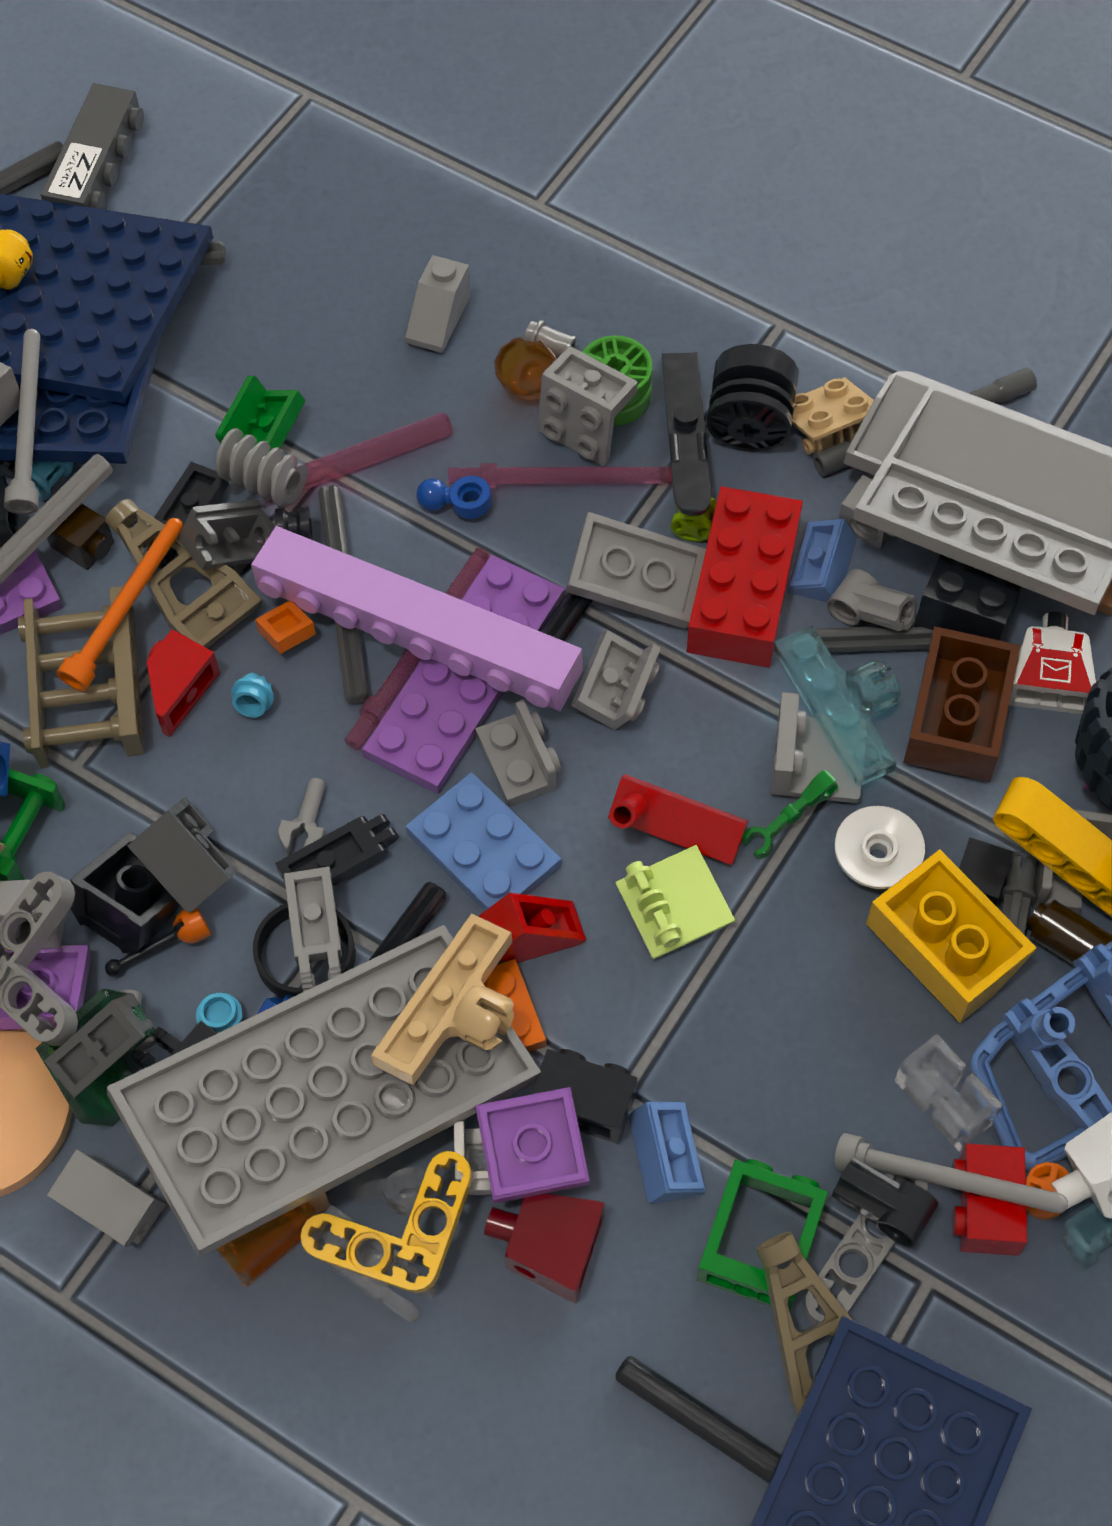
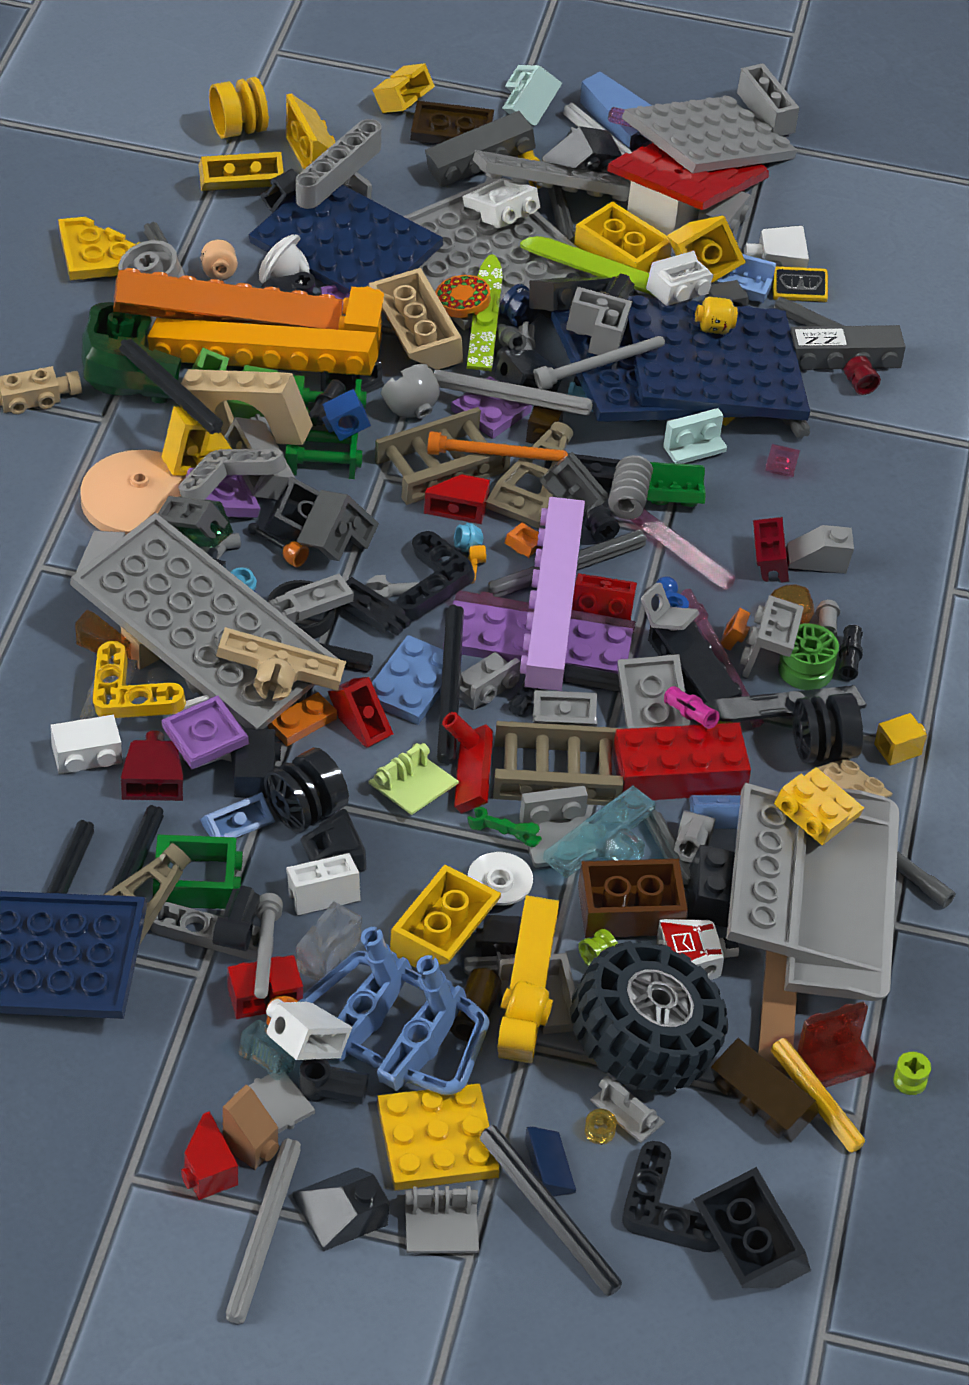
camera: 65 degrees right, 15 degrees down
(149, 156) = (861, 374): none -> dark red wheel
(187, 371) = (694, 436): none -> light aqua bracket
(260, 292) = (782, 460): none -> clear pink plate
(286, 700) = (476, 555): none -> light orange hand
(308, 739) = (451, 574): none -> black beam
(416, 352) = (771, 547): none -> dark red hinge
(428, 556) = (604, 596): none -> red bracket
(473, 1325) = (86, 744): none -> white brick
(521, 496) = (666, 616): none -> light grey bracket
(524, 798) = (450, 680): none -> black axle
(537, 441) = (735, 629): none -> orange plate
(556, 507) = (700, 667): none -> black brick
(574, 729) = (524, 698): none -> black axle
(595, 328) = (850, 652): none -> black pin
(674, 1039) = (306, 789): none -> black wheel
(689, 526) = (703, 714): none -> dark pink pin
(701, 1311) = (141, 843): none -> black axle
(729, 745) = (512, 783): none -> dark tan fence
(762, 1026) = (337, 837): none -> black piece
(777, 327) = (900, 739): none -> yellow brick
(829, 1068) = (322, 882): none -> white hinge
(909, 443) = (818, 805): none -> yellow plate
(1024, 762) = (592, 947): none -> lime wheel

